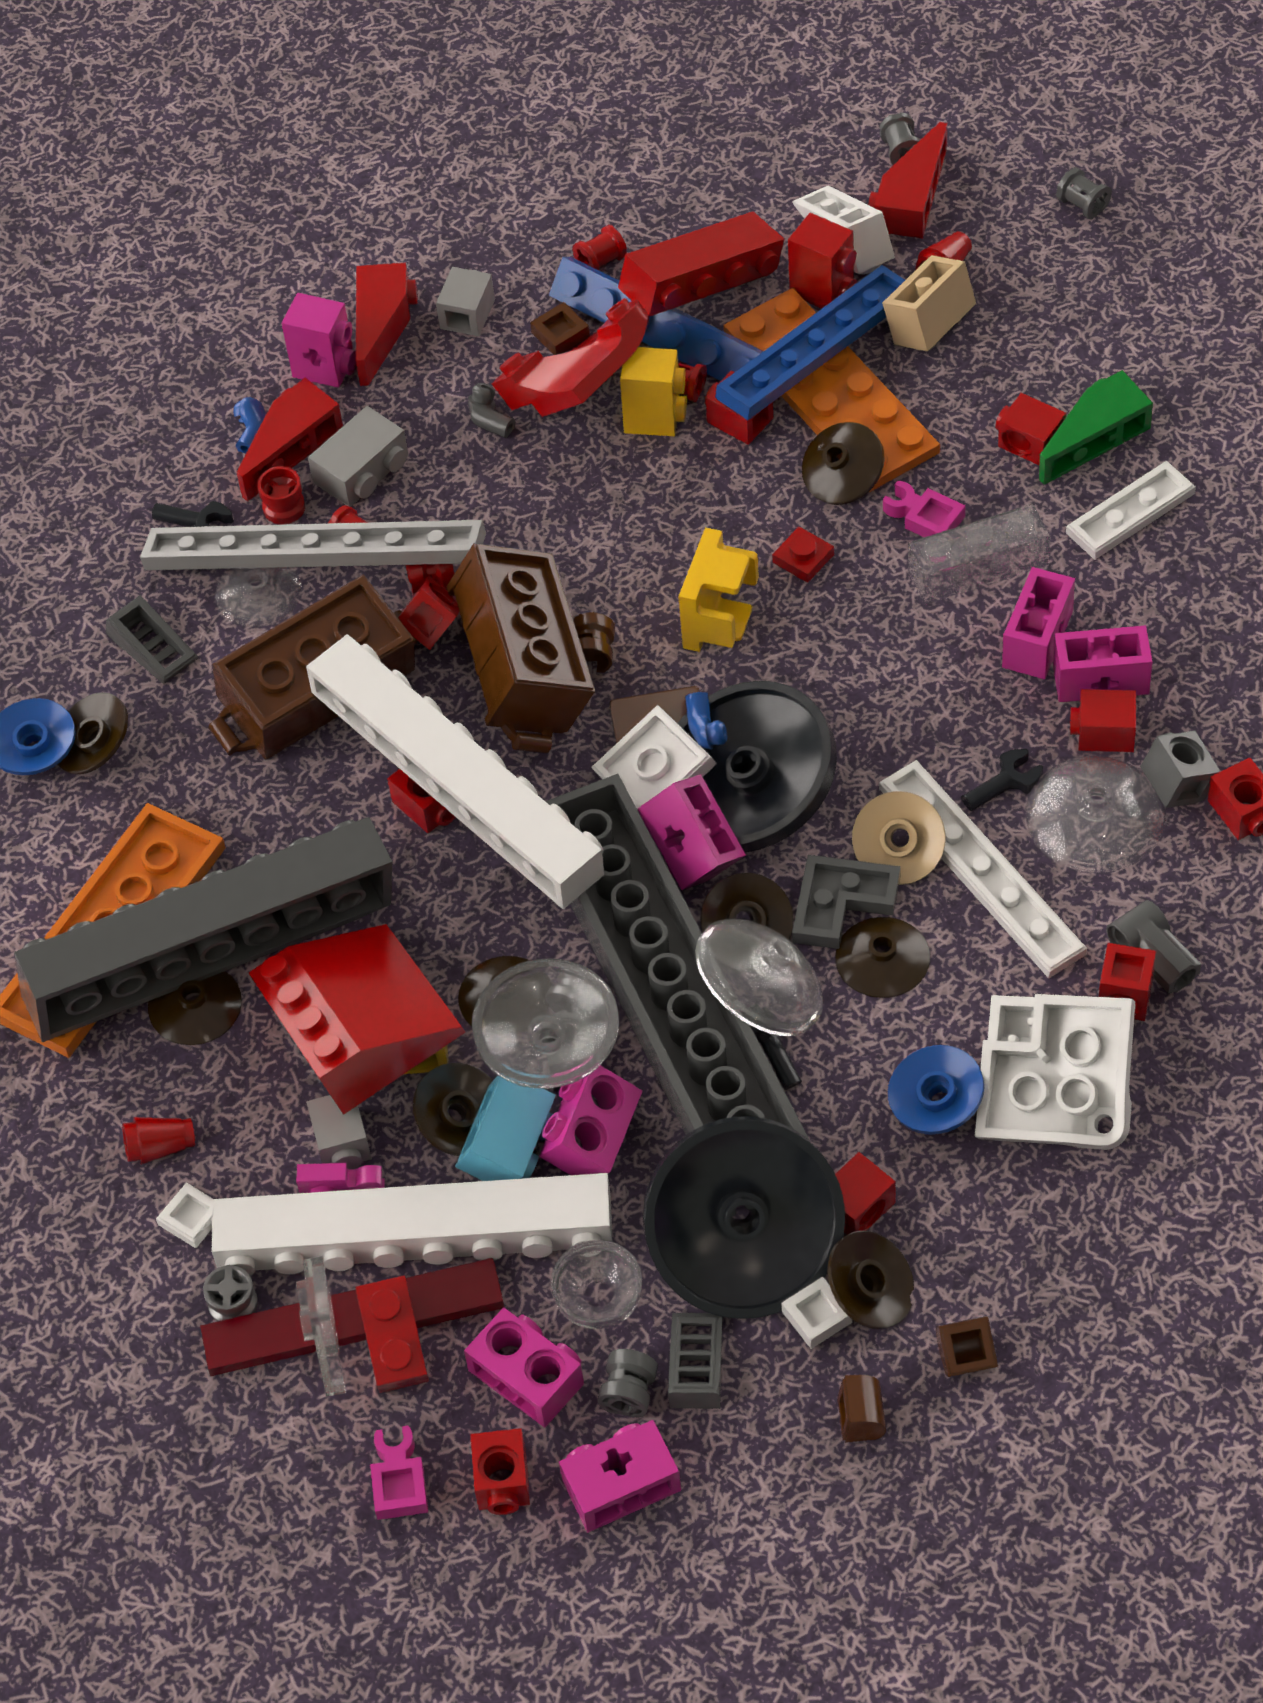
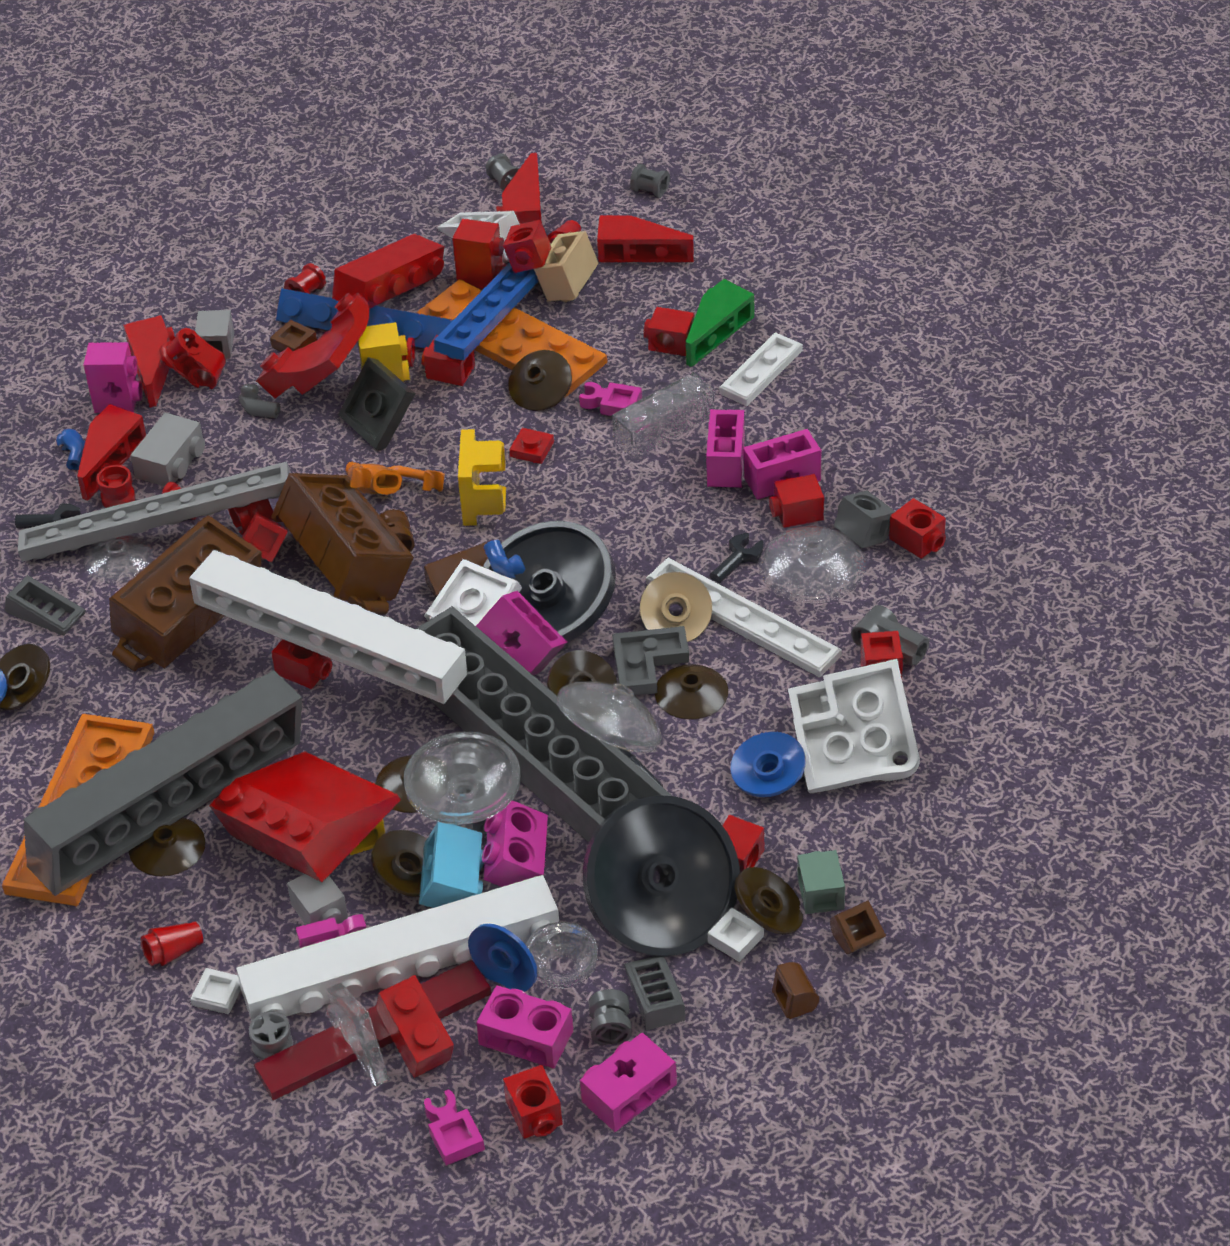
camera: 20 degrees left, 10 degrees down
(431, 335) = (195, 358): none -> red piece
(524, 1271) = (502, 957): none -> blue dish
(604, 562) = (387, 480): none -> orange piece
(626, 453) = (376, 404): none -> pearl dark grey plate
(881, 269) = (527, 246): none -> red brick
(943, 1270) = (821, 881): none -> sand green brick
(1035, 282) = (638, 240): none -> red slope

